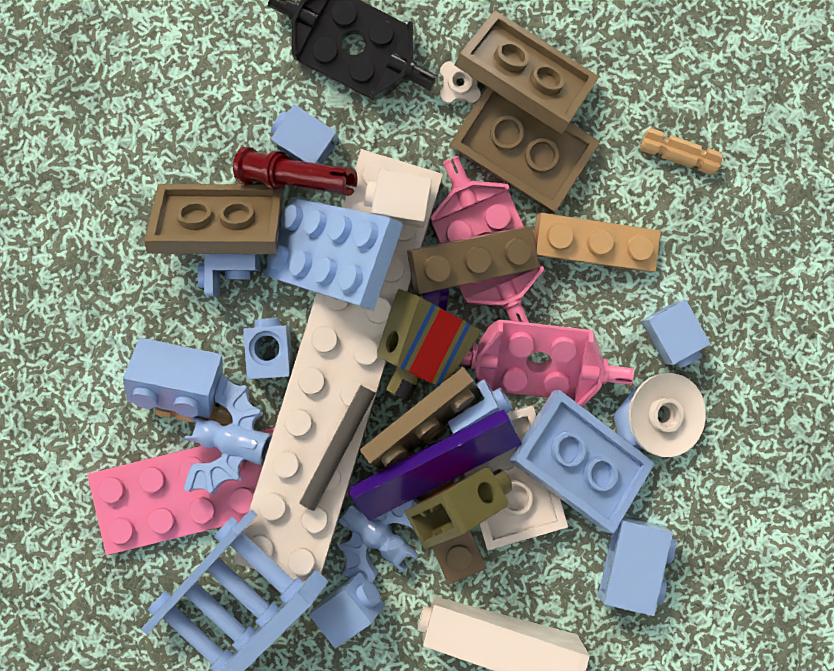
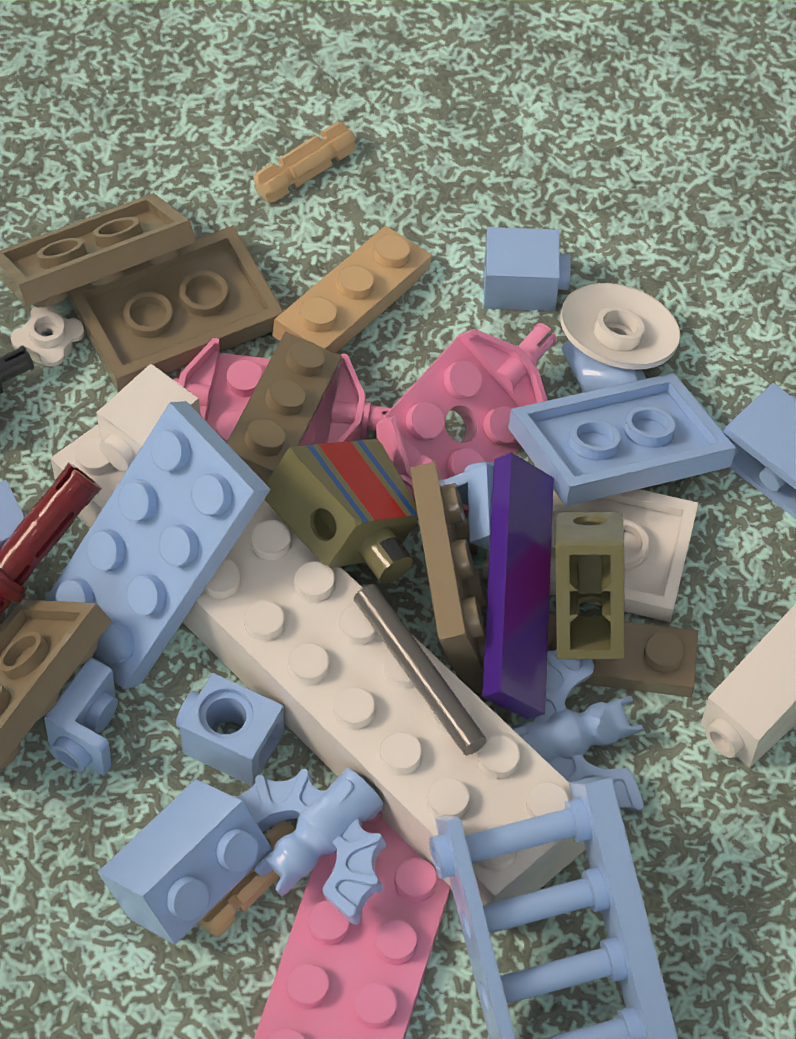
camera: 70 degrees left, 30 degrees down
(347, 610) = (657, 814): light blue brick -> none

